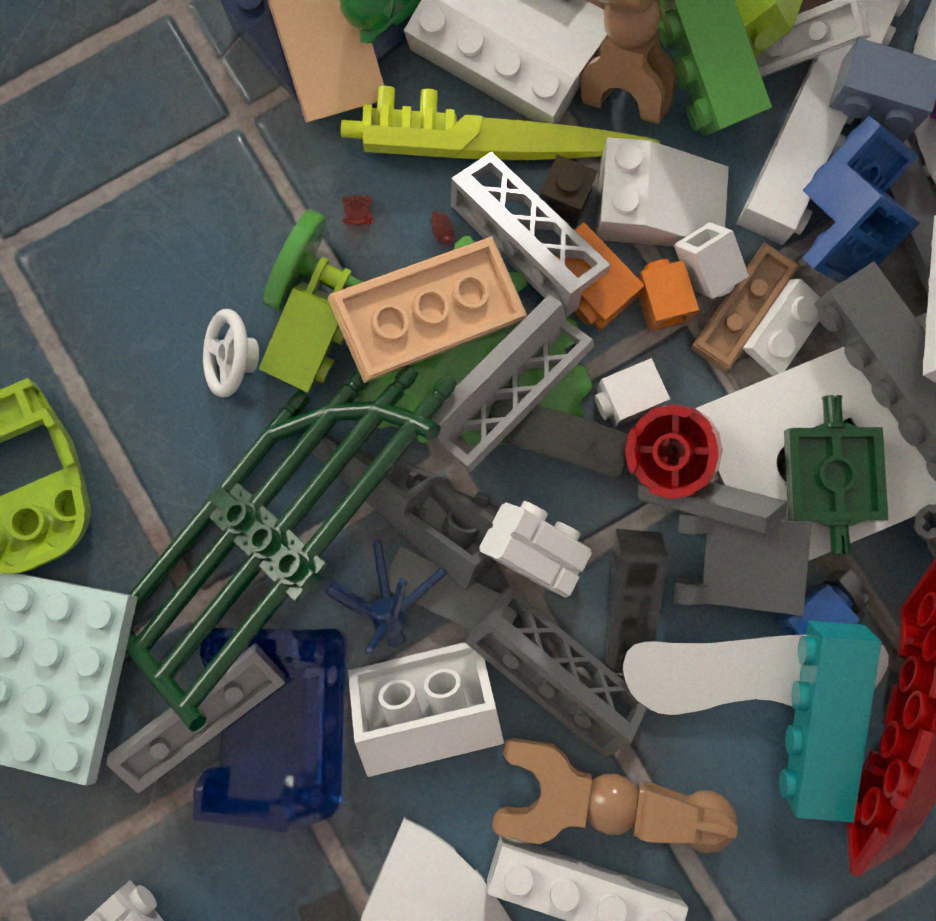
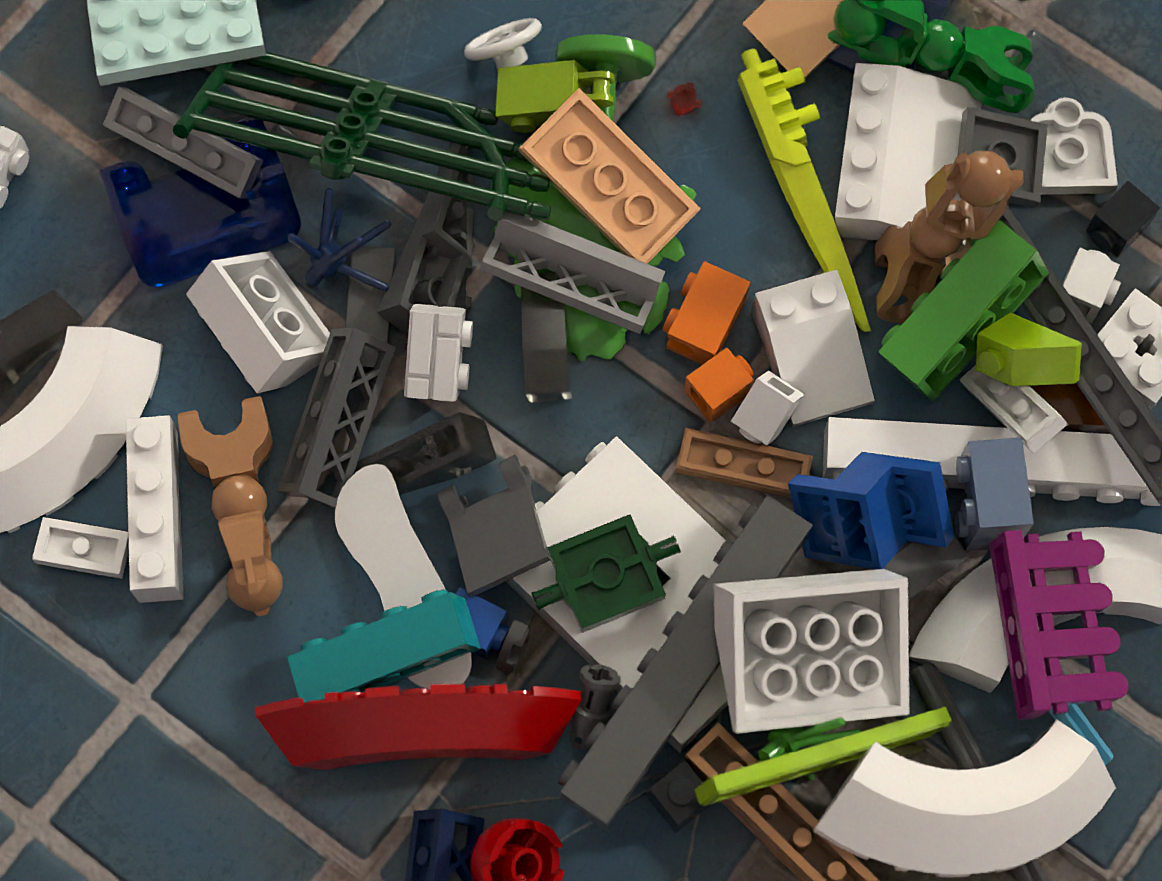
camera: 65 degrees right, 10 degrees down
(441, 227) = (699, 173): clear red piece -> none
(516, 243) = (705, 235): light grey fence -> none
(568, 189) = (776, 260): dark brown brick -> none
(630, 393) = (611, 384): white brick -> none
(674, 450) = (569, 427): red cylinder -> none
(726, 506) = (539, 478): dark grey tile -> none
(784, 327) = (728, 499): white plate -> none

